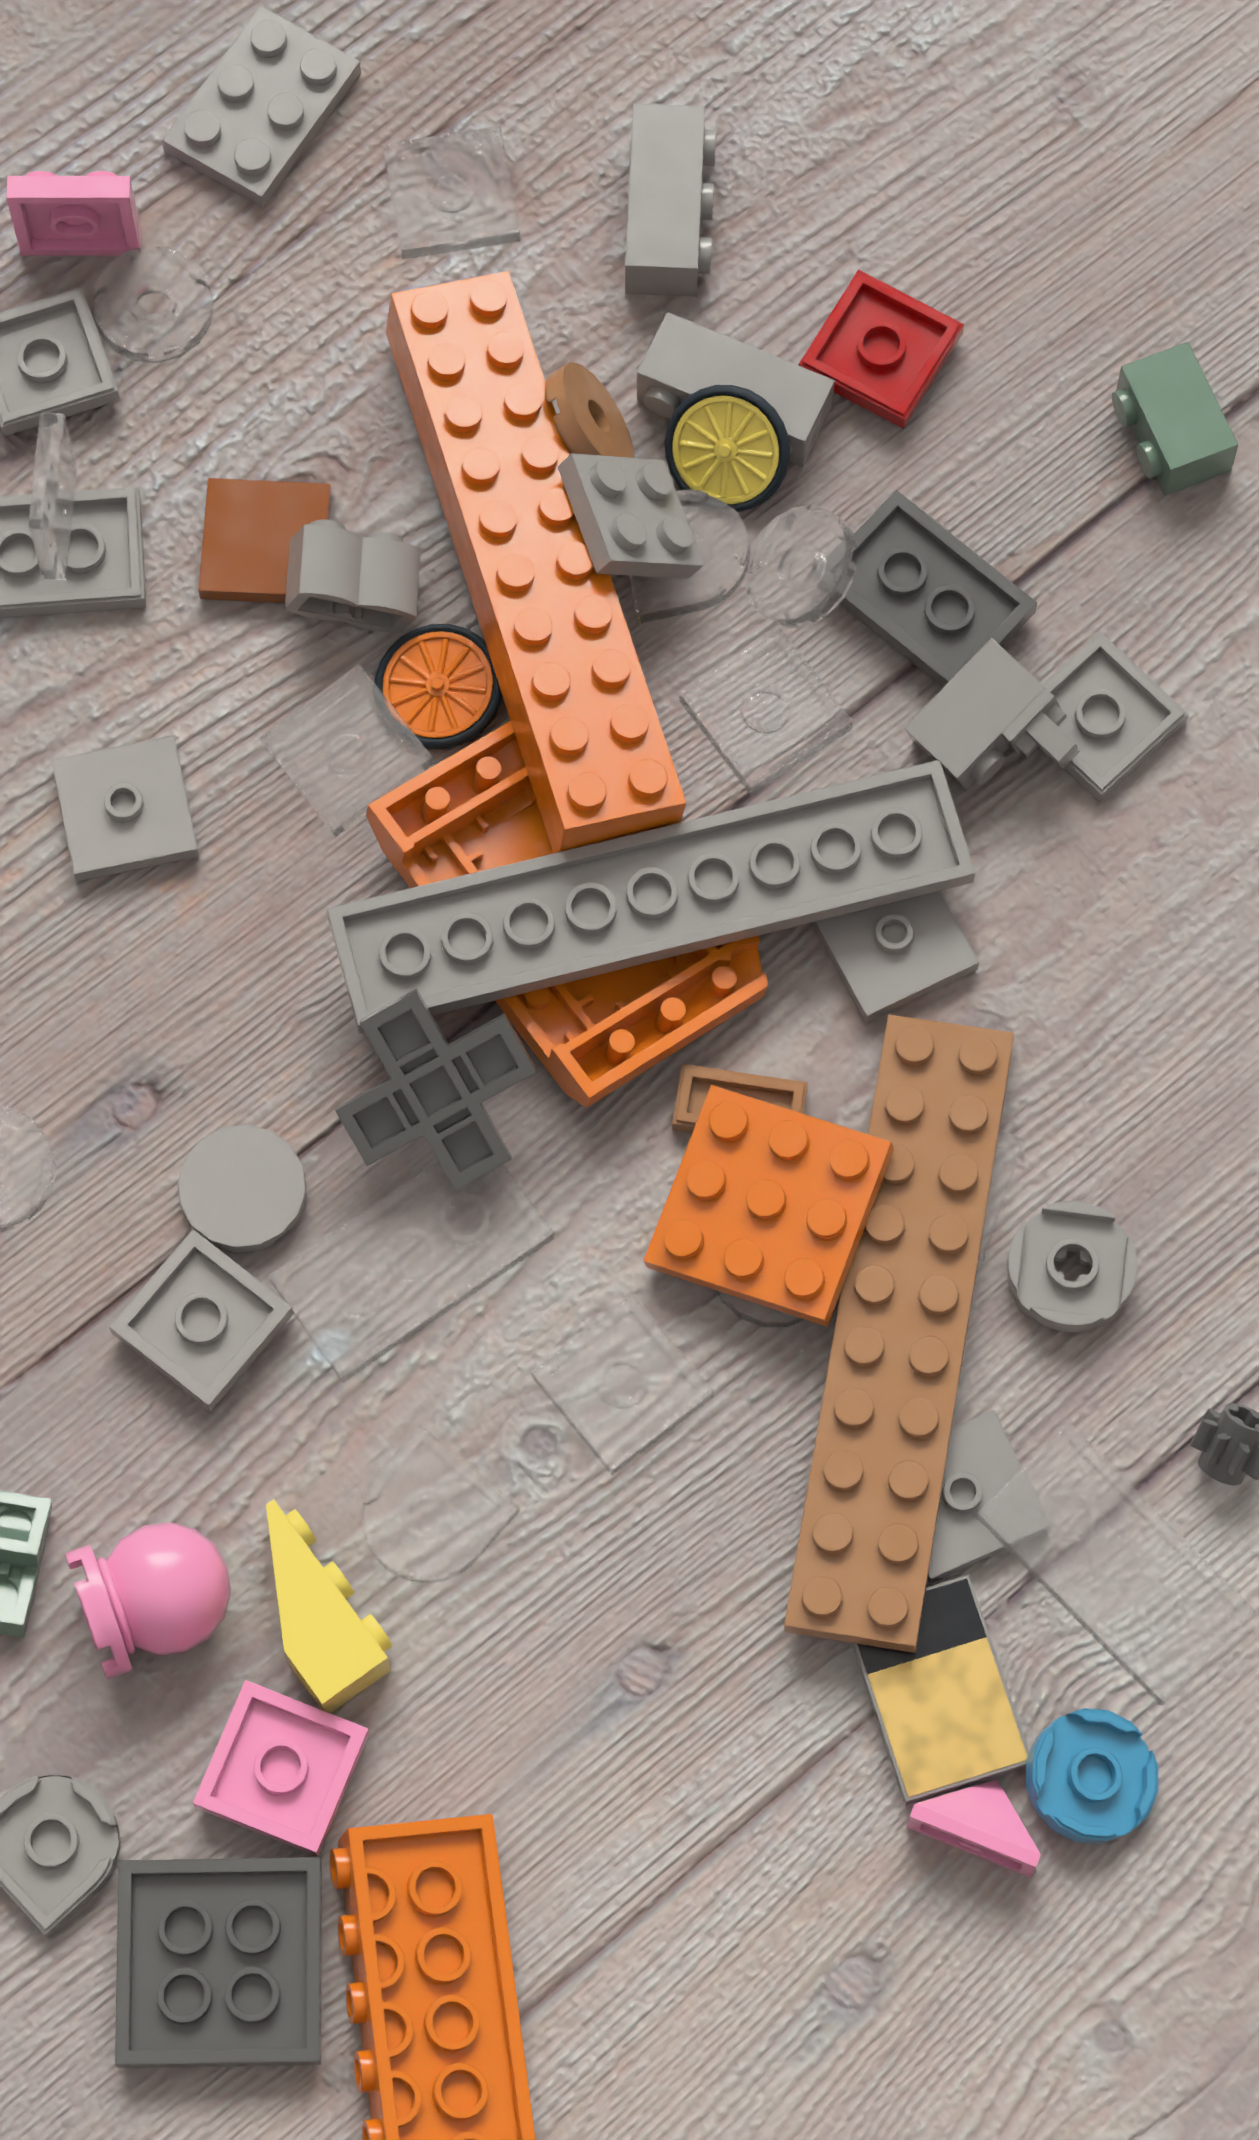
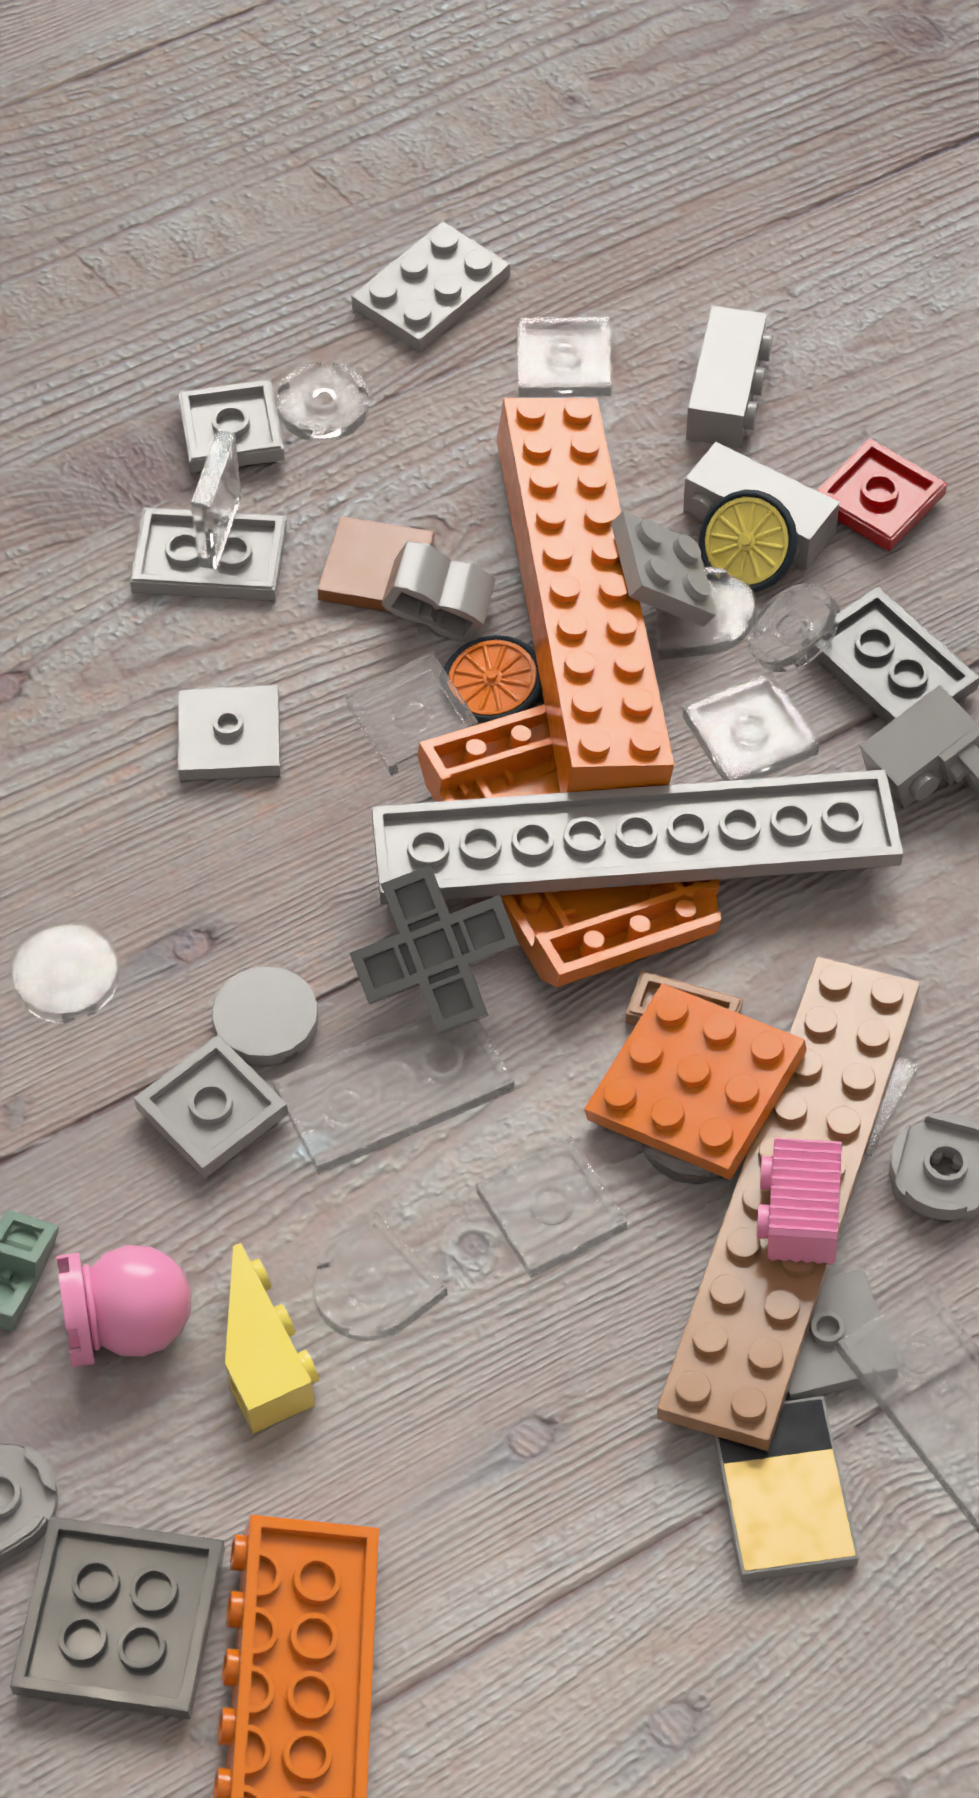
camera: 10 degrees right, 15 degrees down
(73, 214) = (273, 326): bright pink plate -> none
(281, 1768) = (205, 1465): bright pink plate -> none
(588, 414) = (639, 495): medium nougat tile -> none
(896, 952) = (830, 911): light grey plate -> none
(917, 1351) = (803, 1200): none -> bright pink brick
(979, 1823) = (802, 1604): bright pink slope -> none
(1091, 1776) = (909, 1578): dark azure tile -> none

